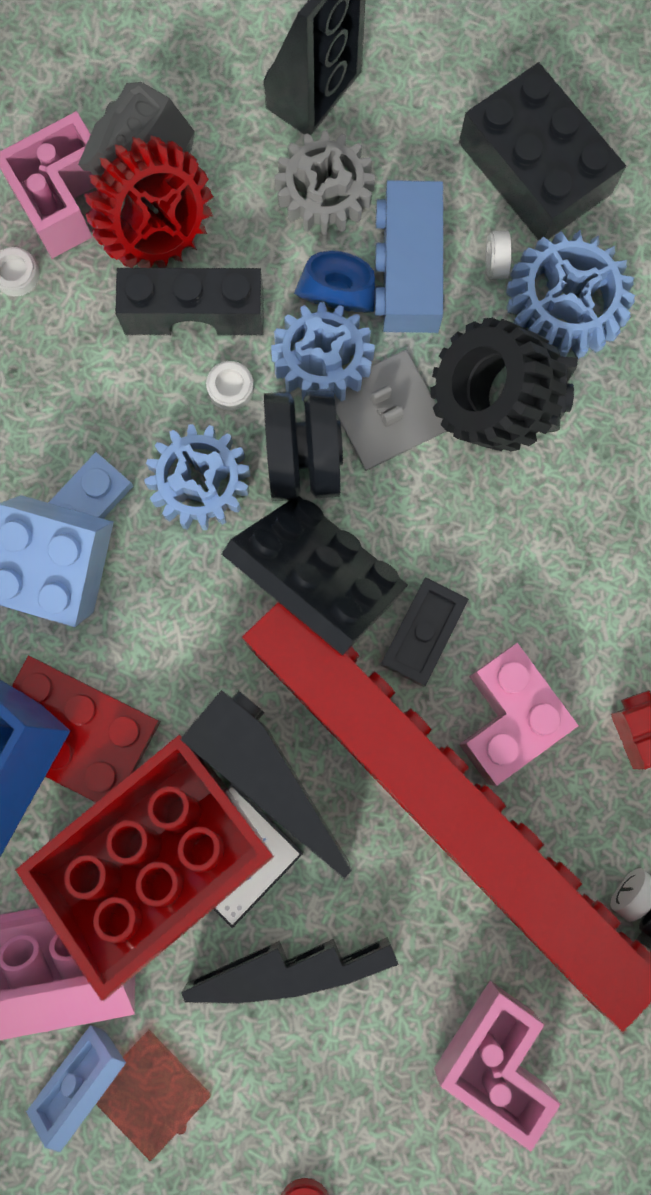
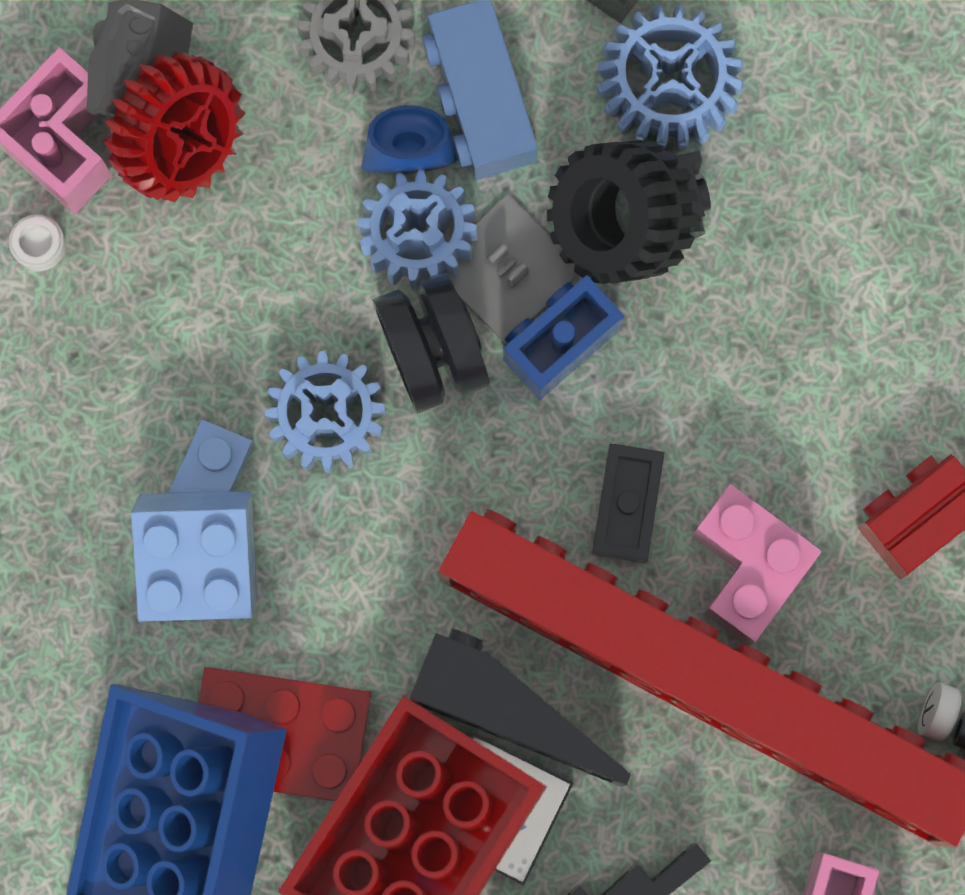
camera: 15 degrees left, 0 degrees up
(159, 297) = (278, 206): black arch -> none
(230, 385) = (324, 296): white tile -> none
(316, 571) = (493, 474): black plate -> none
(414, 475) = (562, 337): none -> blue brick
(498, 254) = (576, 56): white tile -> none

